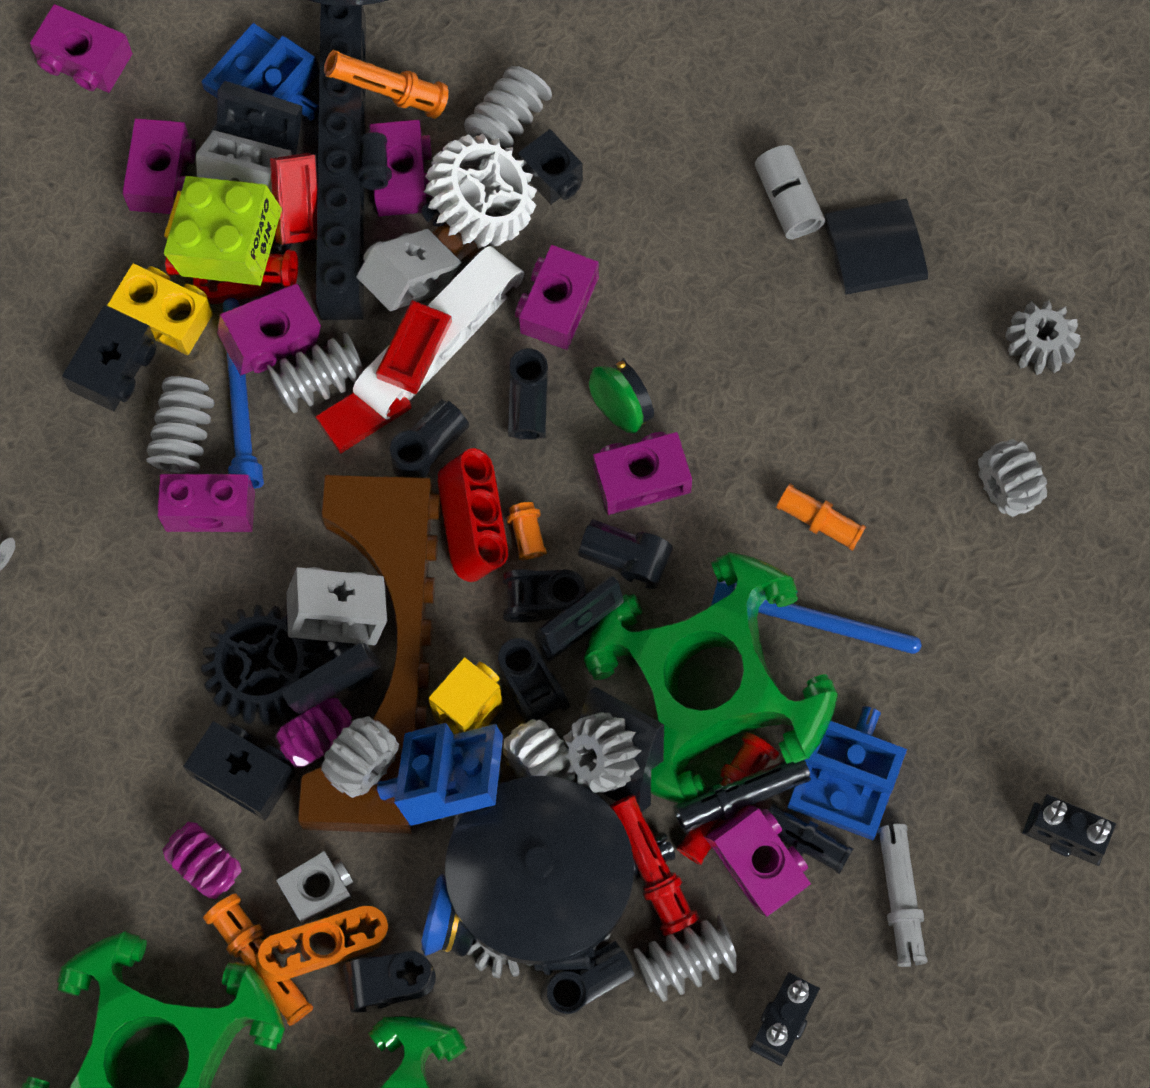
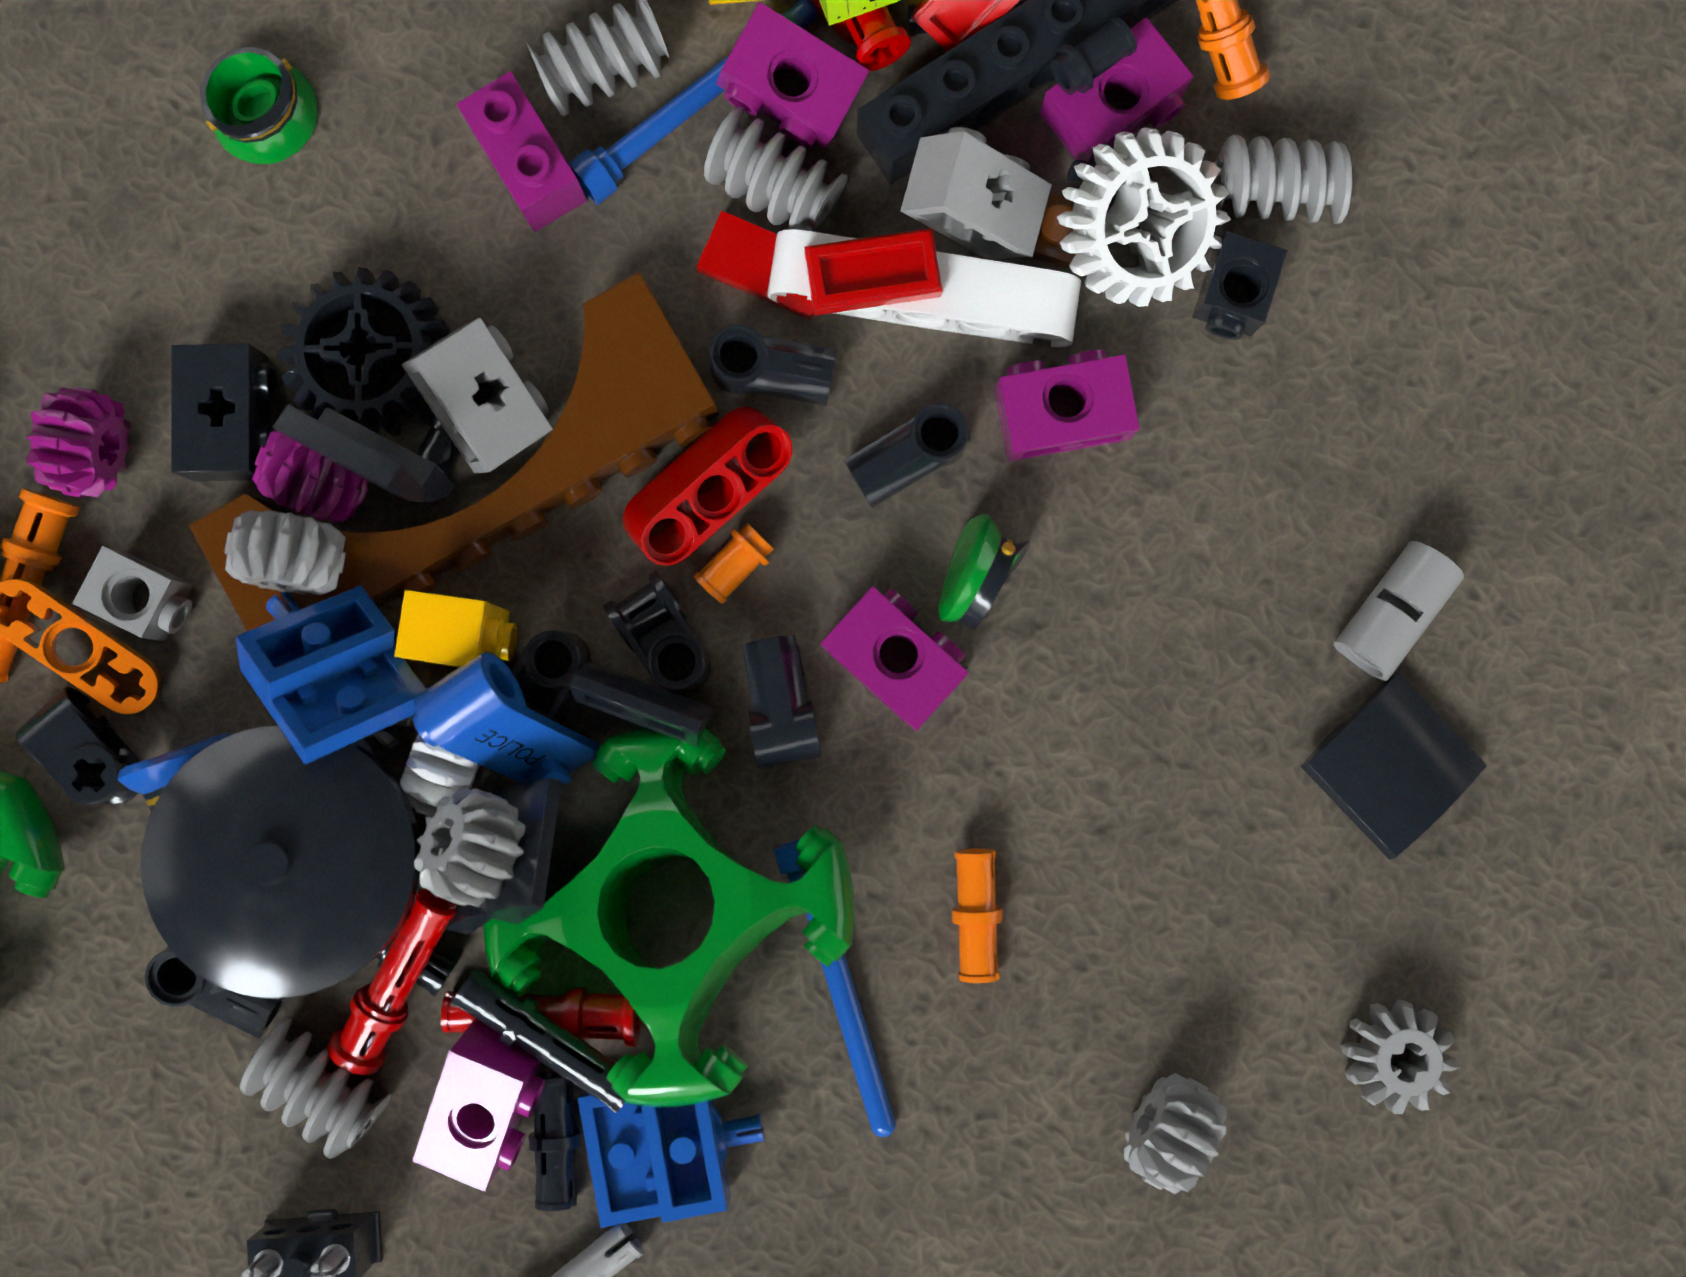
camera: 55 degrees right, 15 degrees up
(66, 643) = (258, 105): none -> green piece
(538, 697) = (486, 720): none -> blue door

